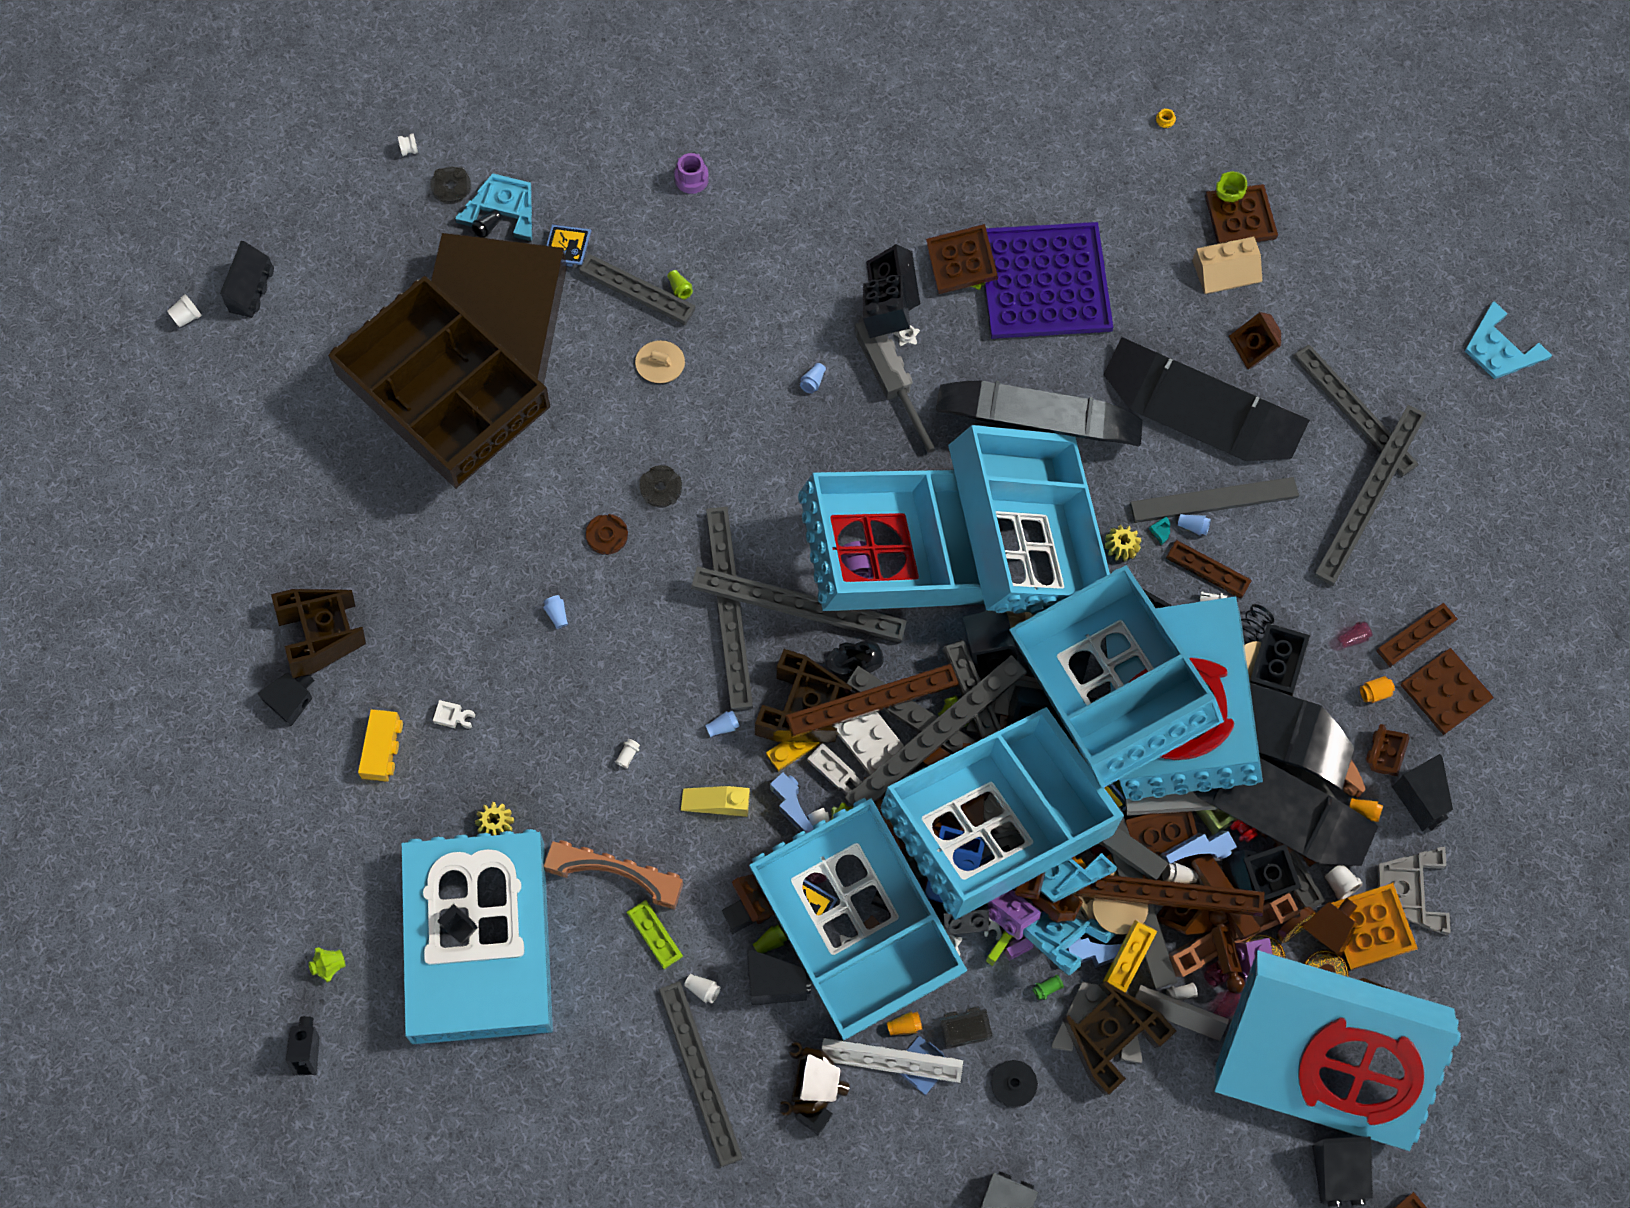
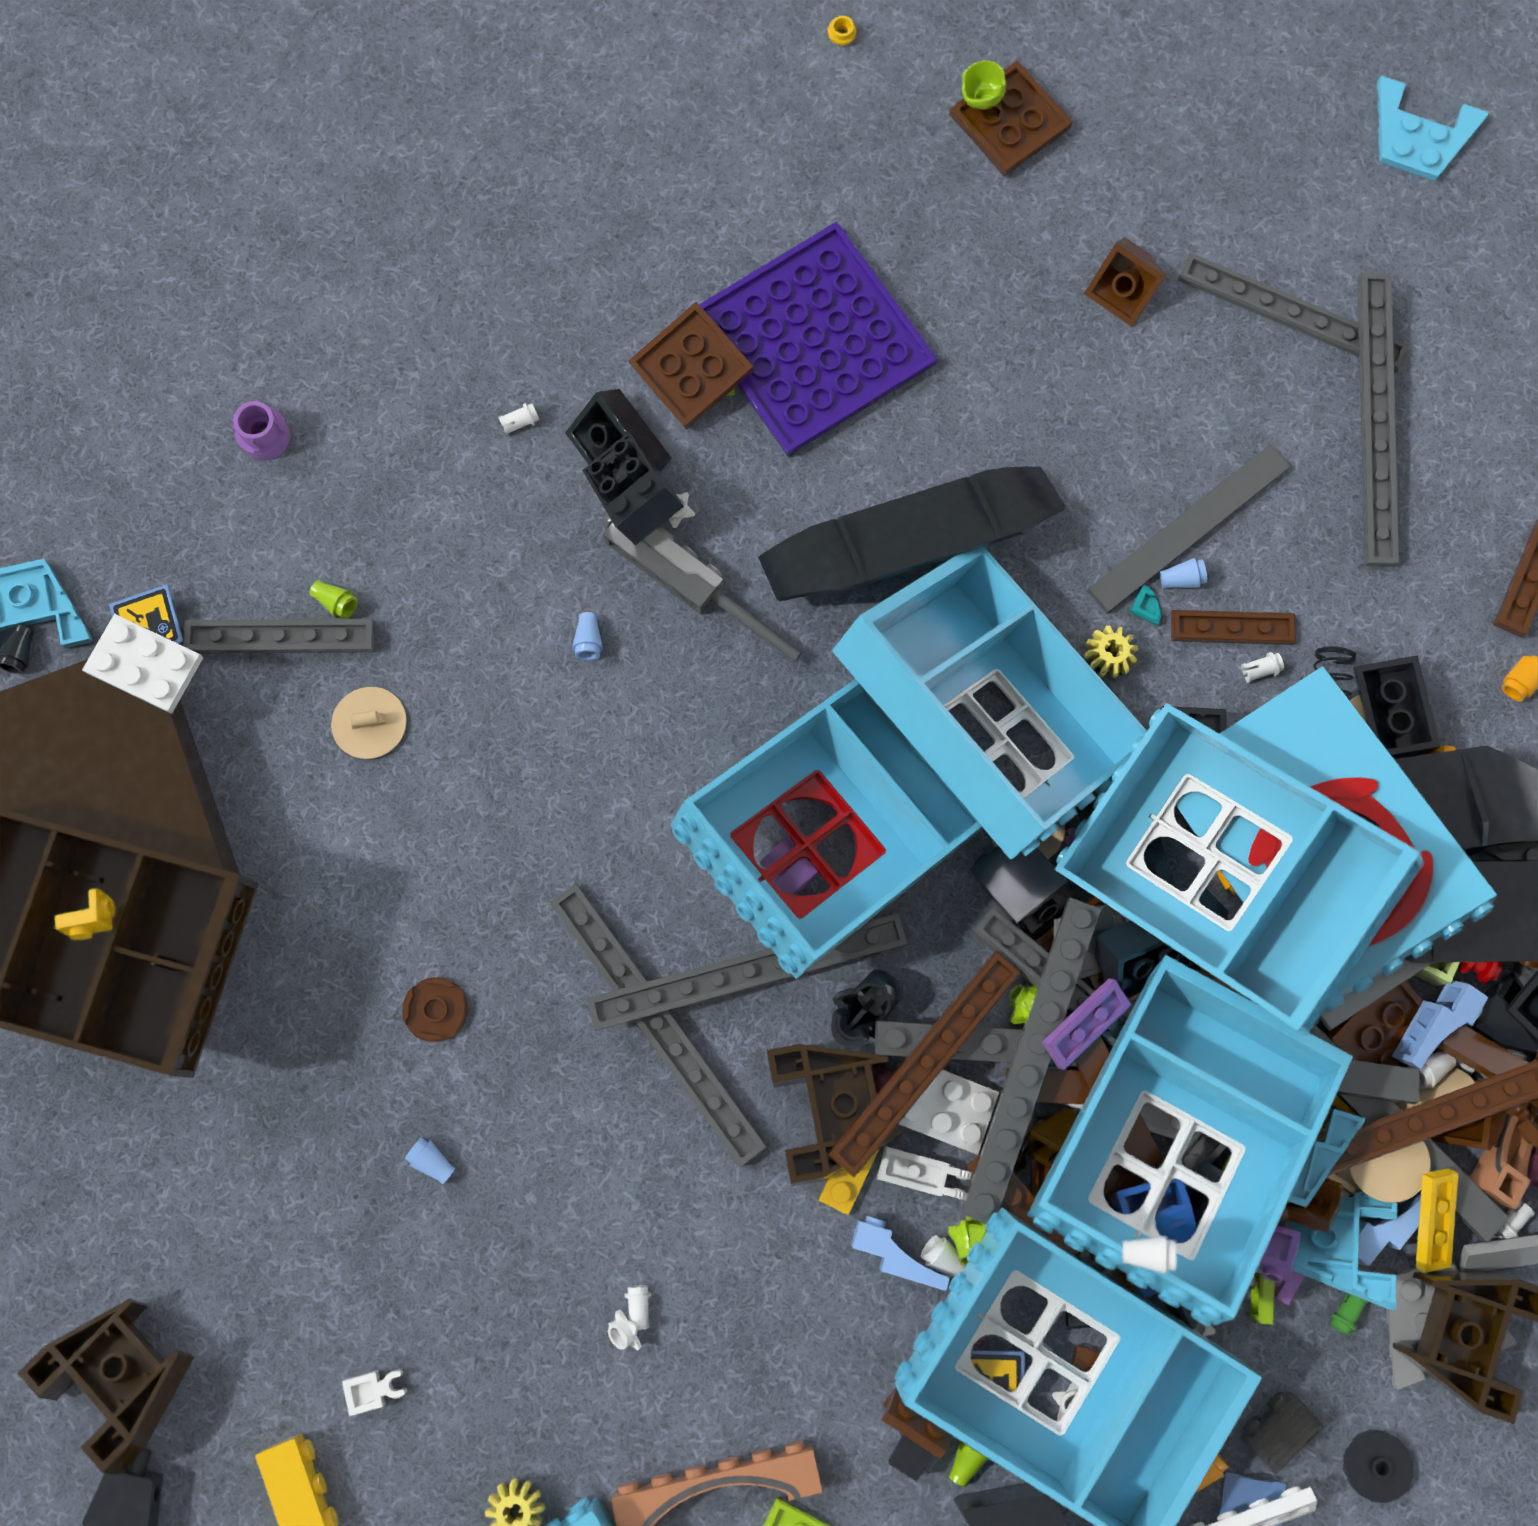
camera: 30 degrees left, 10 degrees up
(454, 367) = (84, 923): none -> yellow bracket
(555, 260) = (142, 663): none -> white plate
(611, 761) = (623, 1332): none -> white plate
(663, 497) = (475, 884): clear smoke plate -> none
(717, 800) = (791, 1307): light yellow slope -> none
(723, 724) = (742, 1191): light blue cone -> none
(846, 240) = (519, 418): none -> white pin
(936, 840) = (1151, 1253): none -> white cone
(976, 730) = (1086, 1023): none -> medium lavender tile
(1202, 405) = (1104, 407): black piece -> none
(1228, 265) = (1034, 196): tan slope -> none
(1356, 634) = (1460, 617): clear pink cone -> none

